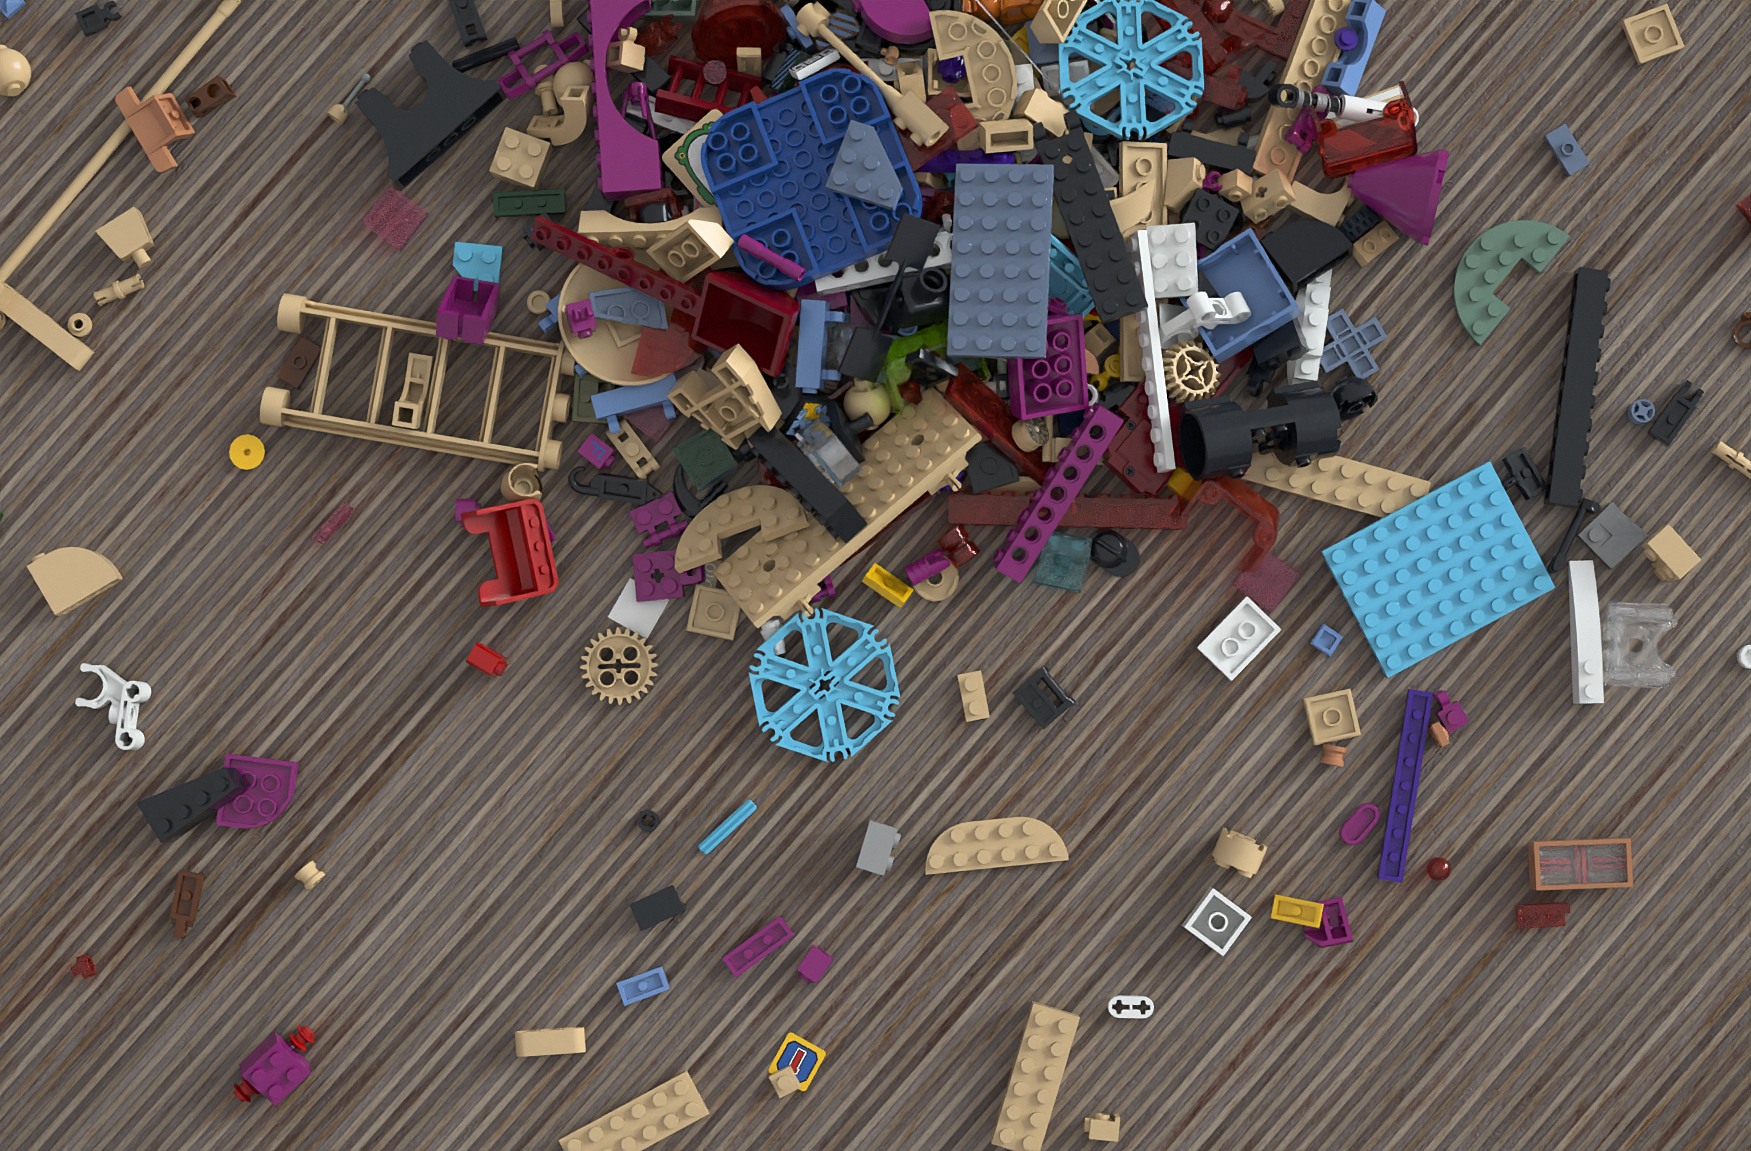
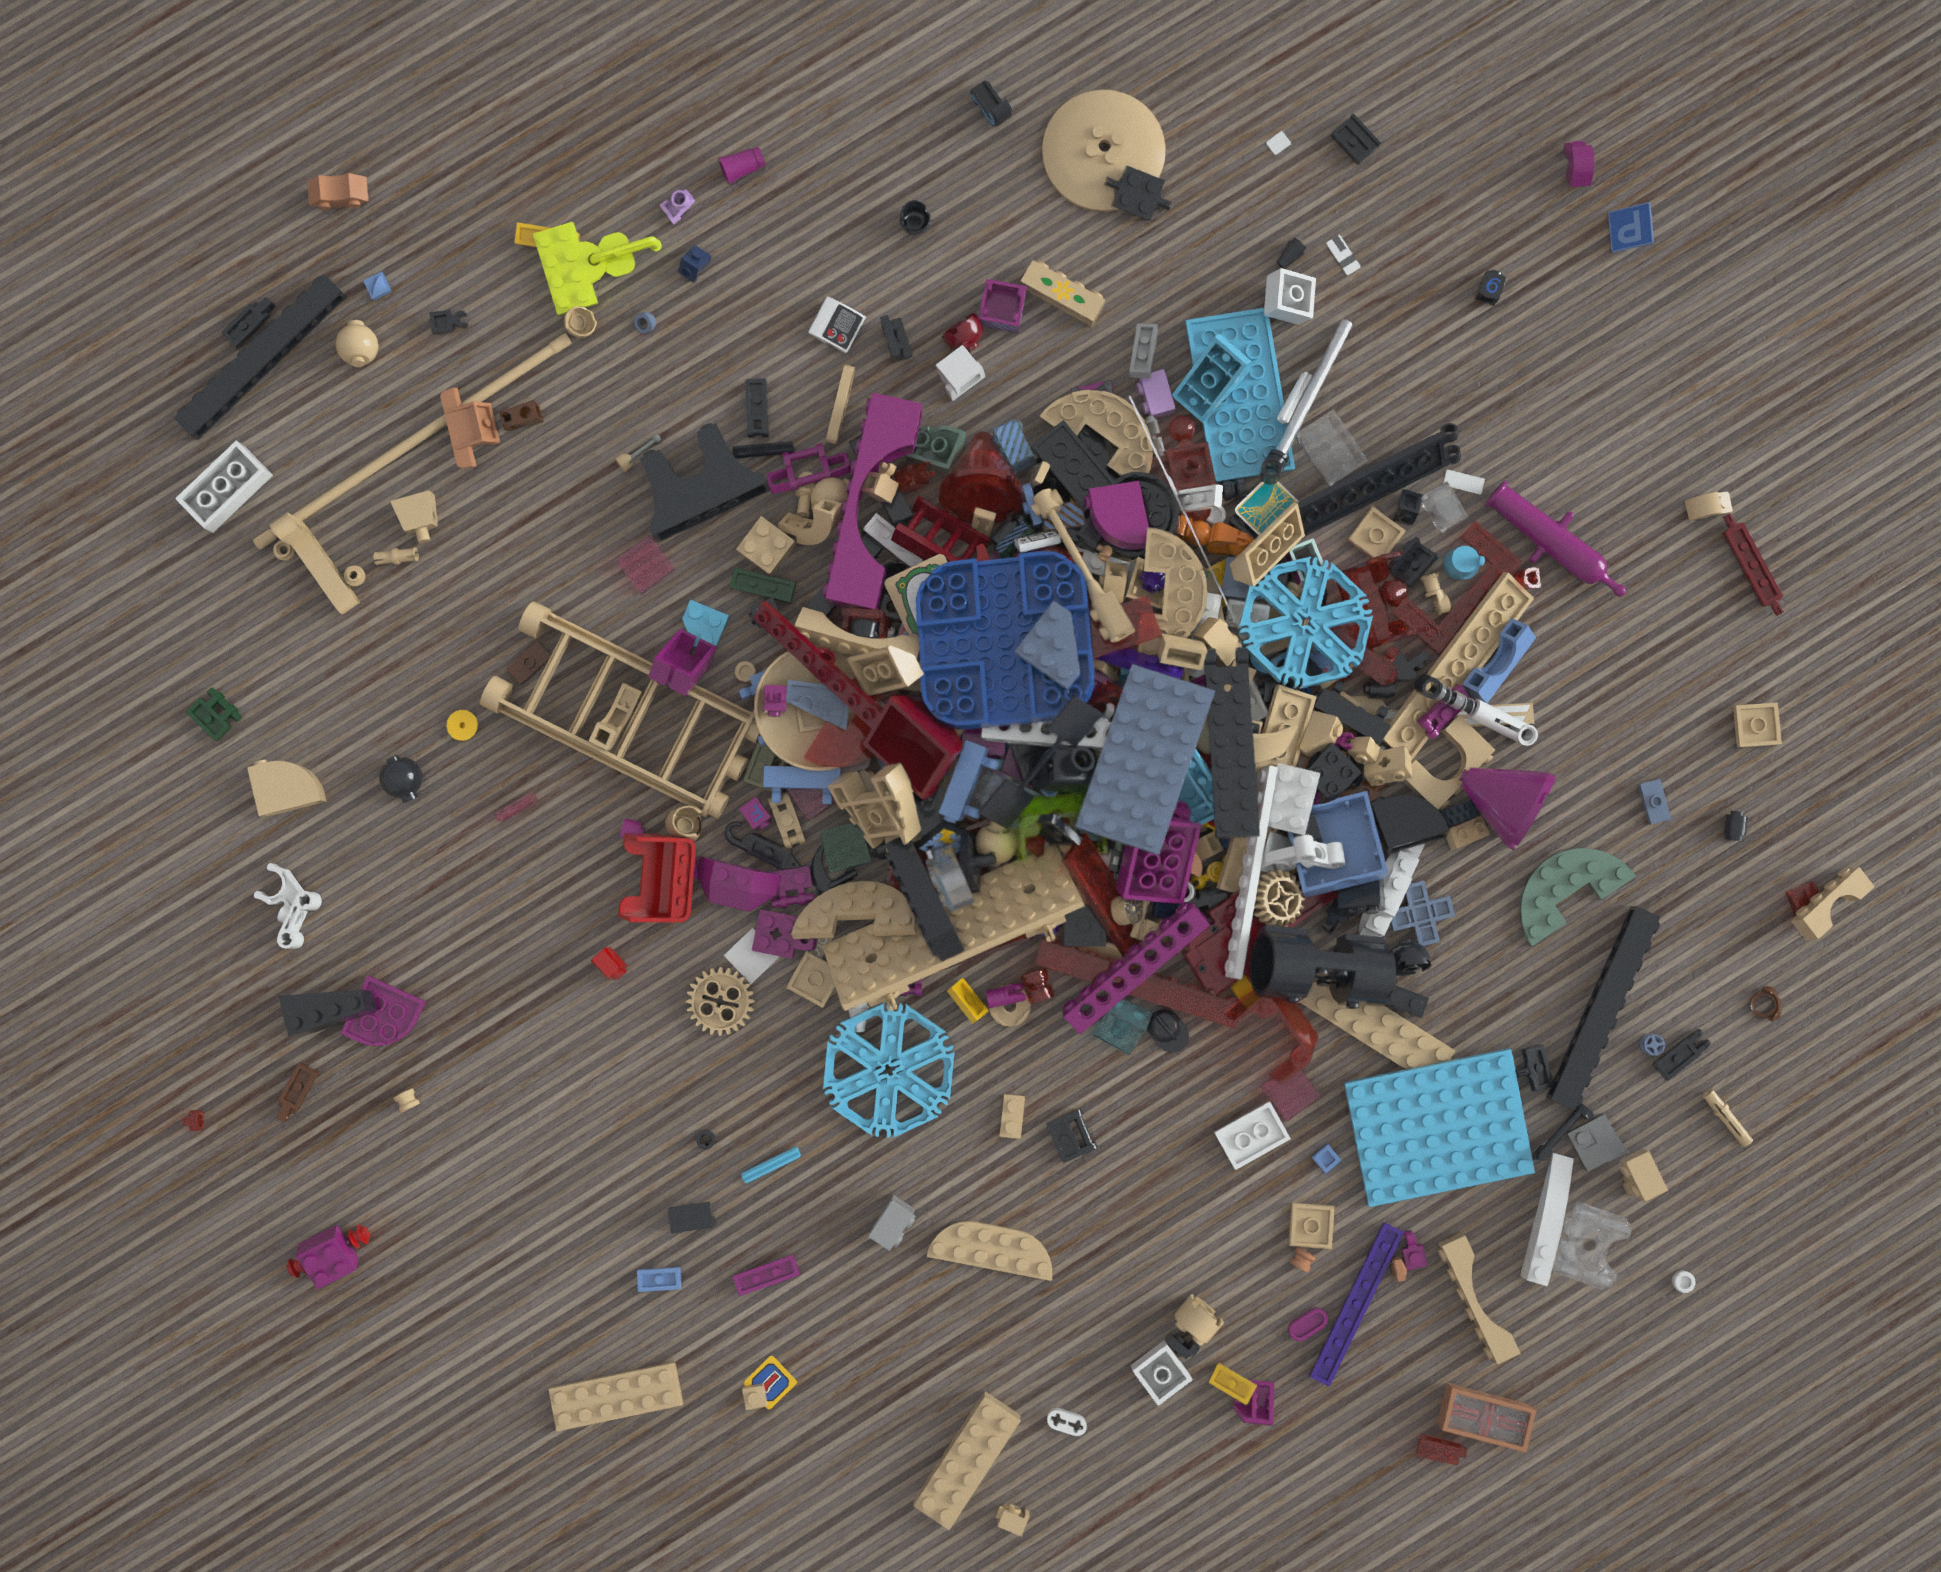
camera: 15 degrees right, 0 degrees up
(198, 528) = (401, 778): none -> black brick
(550, 1041) = (566, 1303): tan beam -> none
(599, 534) = (736, 884): none -> magenta wedge
(638, 96) = (880, 523): magenta plant -> none
(715, 71) = (951, 521): clear pink plate -> none
(784, 265) = (959, 708): magenta piece -> none
(814, 964) = (809, 1305): magenta brick -> none
(1226, 886) = (1178, 1344): none -> black bracket
(1346, 38) = (1495, 652): dark purple plate -> none
(1361, 443) = (1407, 1001): none -> black brick
(1368, 142) = (1488, 747): clear red windscreen -> none
(1438, 868) = (1363, 1383): clear red piece -> none
(1500, 702) = (1459, 1257): none -> tan arch
(1661, 150) = (1735, 826): none -> black brick

